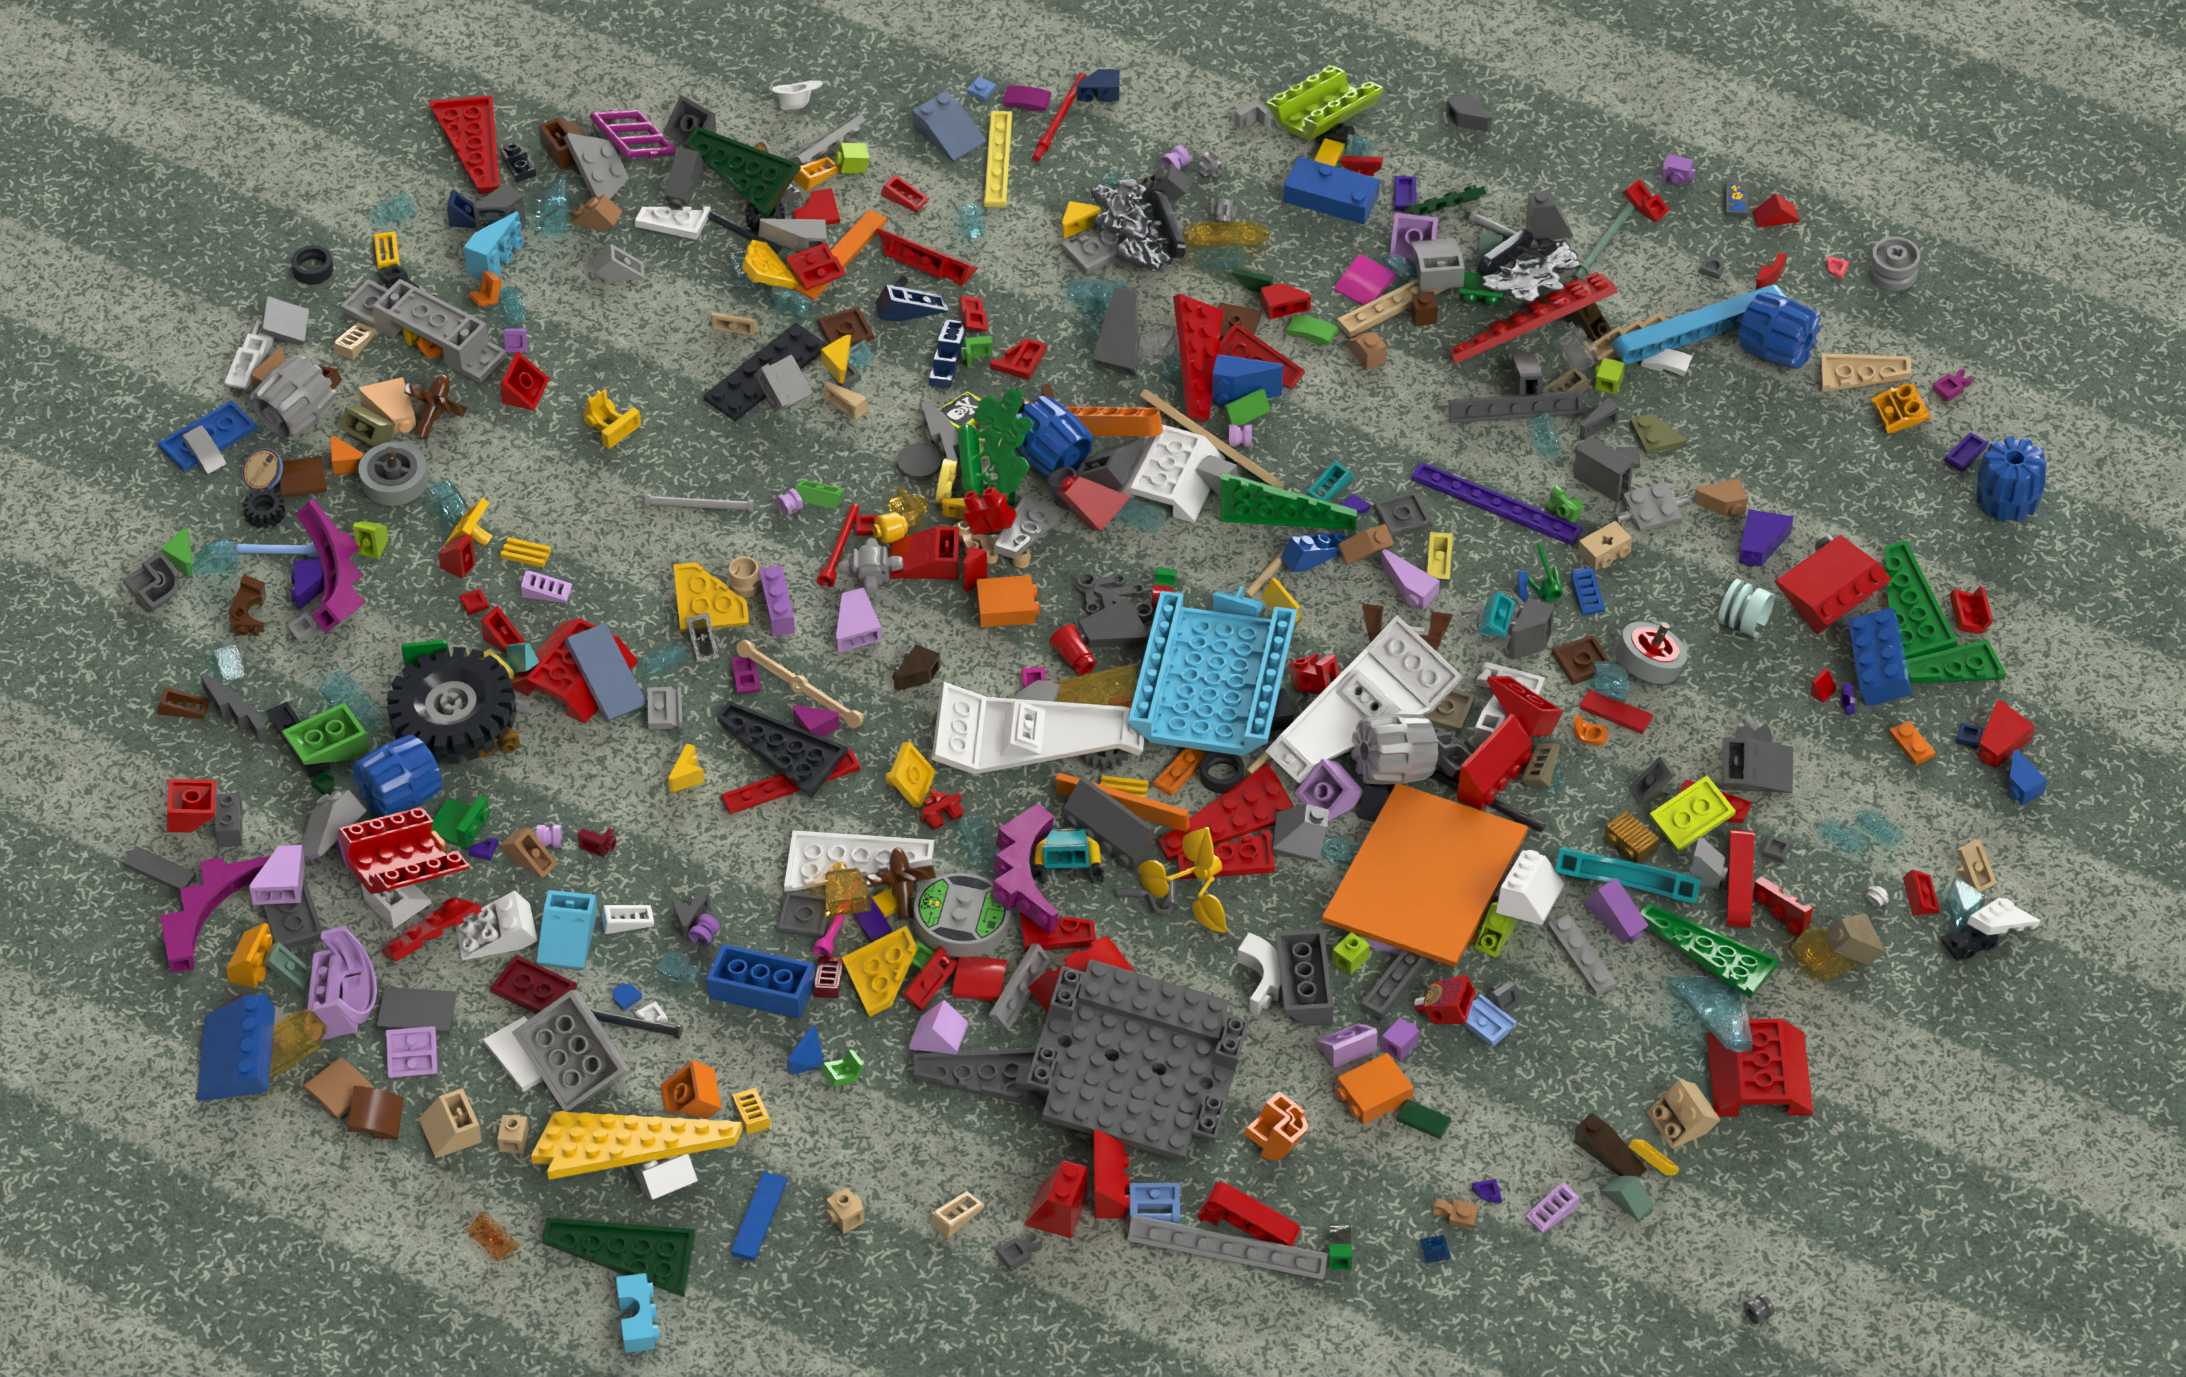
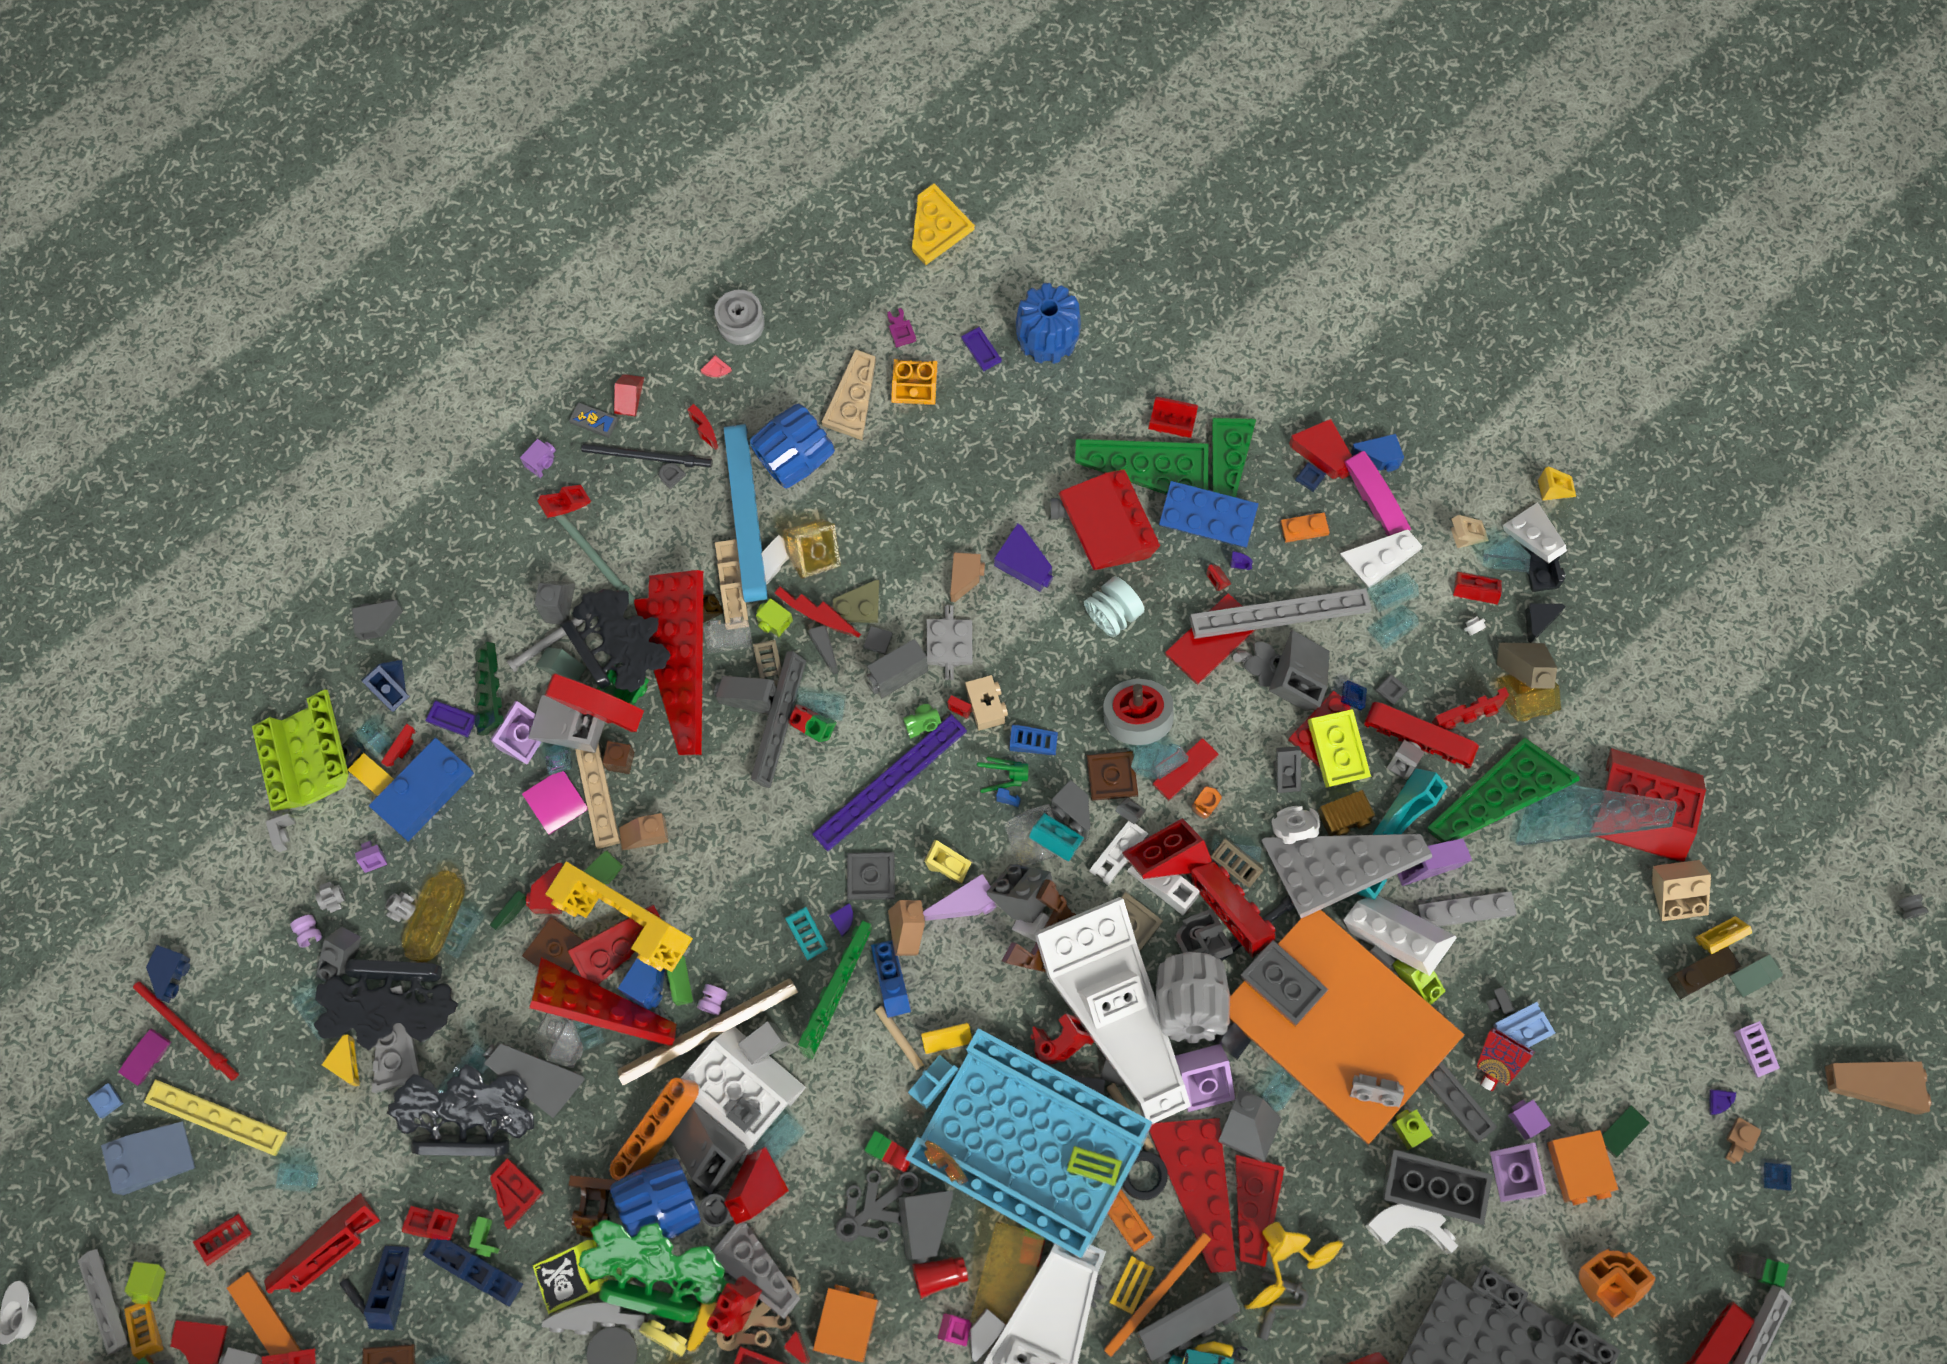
camera: 70 degrees left, 20 degrees up
(1077, 297) = (467, 1104): none -> black plant
(1149, 470) = (744, 1115): none -> dark grey tile
(1171, 605) = (941, 1158): none -> clear orange slope
(1212, 731) = (1114, 1172): none -> lime tile
(1256, 178) = (370, 857): none -> medium lavender tile
(1278, 348) = (658, 942): none -> yellow plate
(1370, 897) = (1388, 1093): none -> light grey hinge
(1415, 138) = (387, 684): none -> dark blue slope
(1431, 600) = (1017, 892): none -> dark grey slope
(1440, 816) = (1284, 983): none -> dark grey plate
(1458, 258) = (594, 702): none -> red slope
(1521, 430) = (812, 723): none -> leg
(1554, 677) = (1130, 810): none -> dark grey tile
(1564, 1311) = (1883, 1083): none -> medium nougat slope
(1572, 827) = (1335, 867): none -> light grey wing
(1592, 524) = (959, 706): none -> red tile
(1602, 800) = (1296, 824): none -> white plate
(1629, 399) = (822, 614): none -> red slope
(1690, 380) = (812, 547): none -> clear yellow slope
(1732, 274) = (688, 460): none -> black bar
(1754, 817) = (1353, 695): none -> clear blue tile
(1759, 699) = (1202, 655): none -> red tile
(1808, 739) = (1280, 613): none -> light grey plate
(1910, 945) = (1540, 617): none -> black slope
(1912, 807) = (1381, 557): none -> white wing
(1973, 784) = (1376, 493): none -> dark pink slope
(2066, 927) = (1555, 484): none -> yellow slope
(2080, 382) = (937, 224): none -> yellow plate

